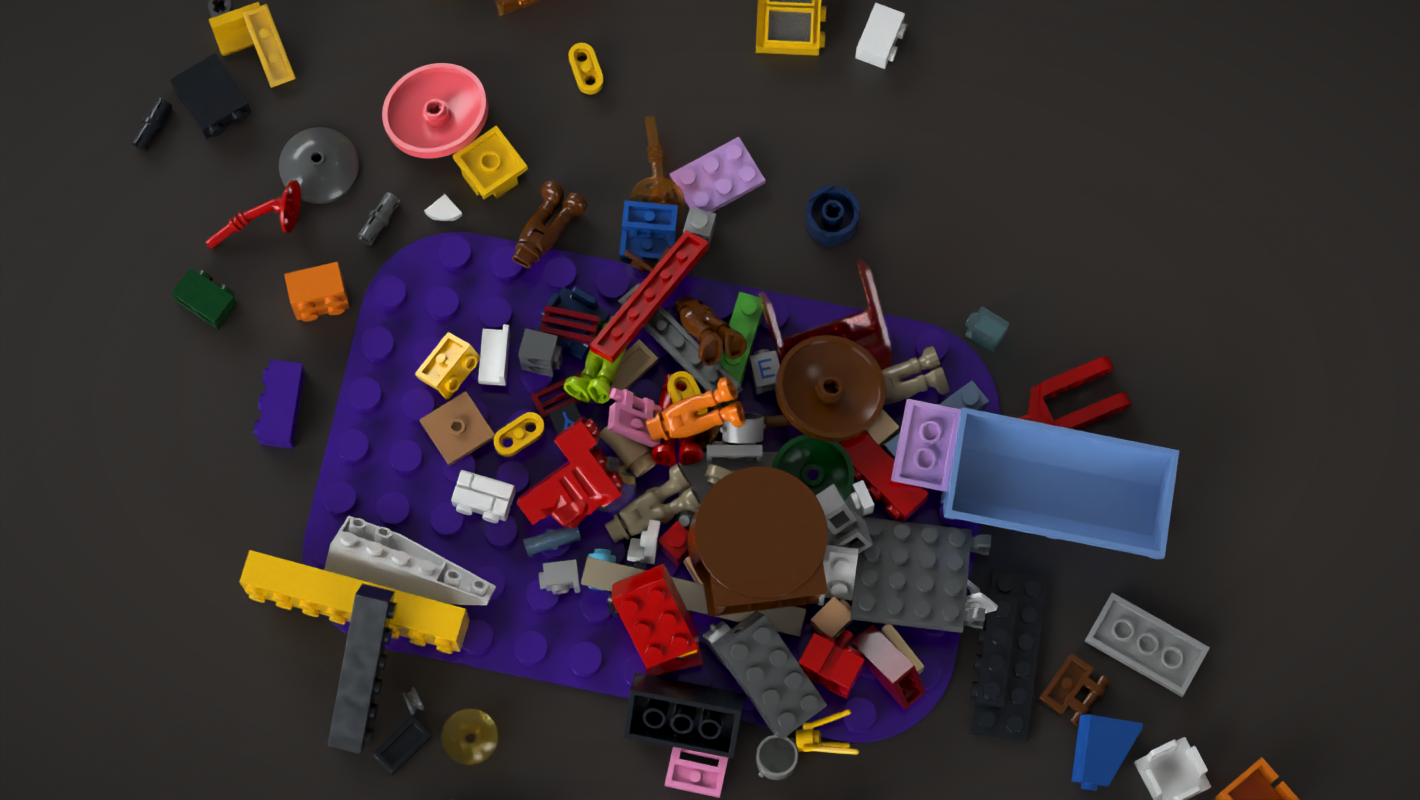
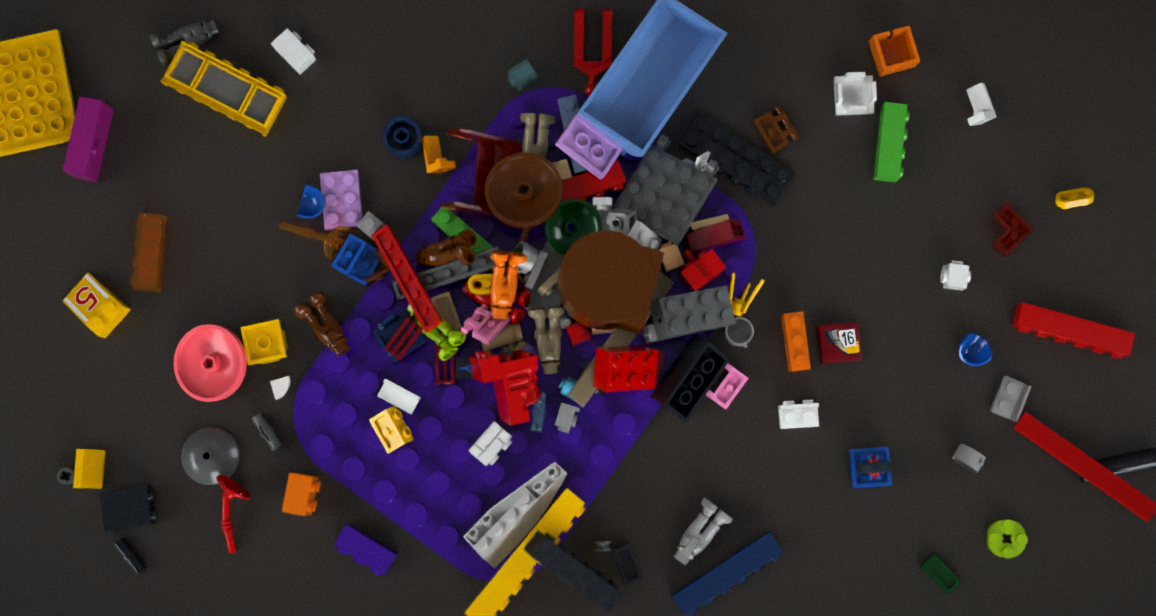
camera: 65 degrees left, 10 degrees up
(204, 297) = (269, 570): dark green brick -> none
(268, 45) = (110, 454): yellow tile -> none
(457, 428) = (436, 441): medium nougat plate -> none
(469, 722) = (649, 526): clear yellow dish -> none
(517, 433) = (458, 403): yellow plate -> none
(540, 353) = (413, 365): dark grey brick -> none
(586, 70) = (226, 251): yellow plate -> none
(646, 548) = (572, 355): white bracket -> none
(694, 143) = (311, 203): none -> blue helmet
(764, 368) = (488, 226): light grey brick -> none
(826, 265) = (433, 158): none -> light orange bracket
(836, 509) = (604, 222): light grey brick -> none
(1101, 749) = (822, 130): blue slope -> none
(1147, 644) = (767, 72): light grey plate -> none

